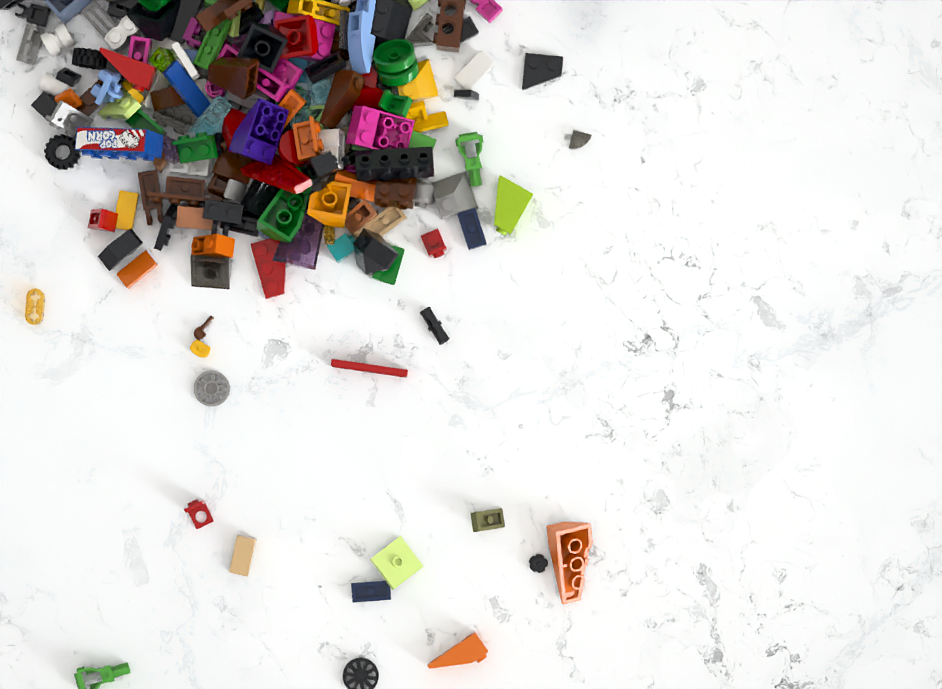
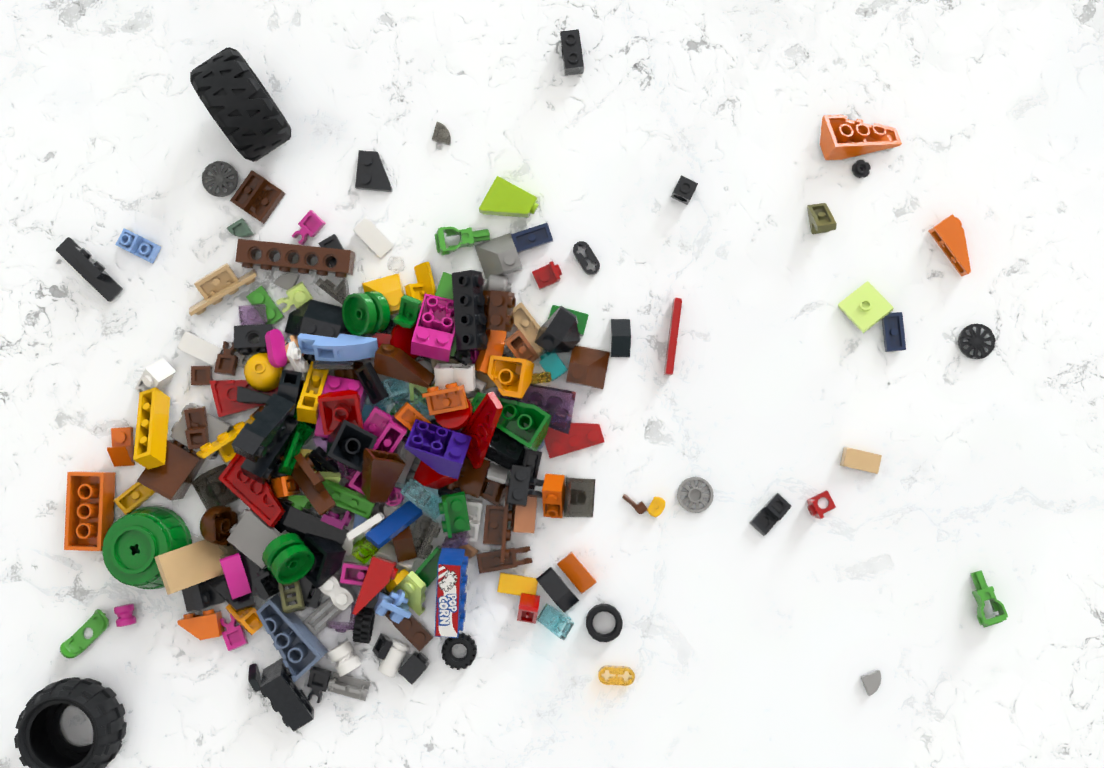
camera: 90 degrees left, 0 degrees up
(22, 560) = (871, 681): none -> light grey tile
(68, 119) = (426, 644): light grey bracket -> none
(69, 97) = (406, 646): orange tile -> none
(72, 295) = (604, 637): none -> black tyre
(88, 37) = (342, 626): none -> clear purple bracket
(89, 247) = (555, 621): none -> clear light blue slope
(168, 223) = (530, 540): black wing -> none
(190, 463) = (770, 514): none -> black slope
(320, 167) = (473, 384): black slope -> none
(340, 282) = (588, 367): none -> reddish brown slope
(370, 316) = (620, 337): none -> black slope
(434, 325) = (629, 273): black pin -> none
(447, 279) = (590, 255): none -> black beam
(466, 94) = (397, 245): black tile -> none
(517, 382) = (684, 190): none -> black brick
(659, 271) = (571, 52): none -> black brick

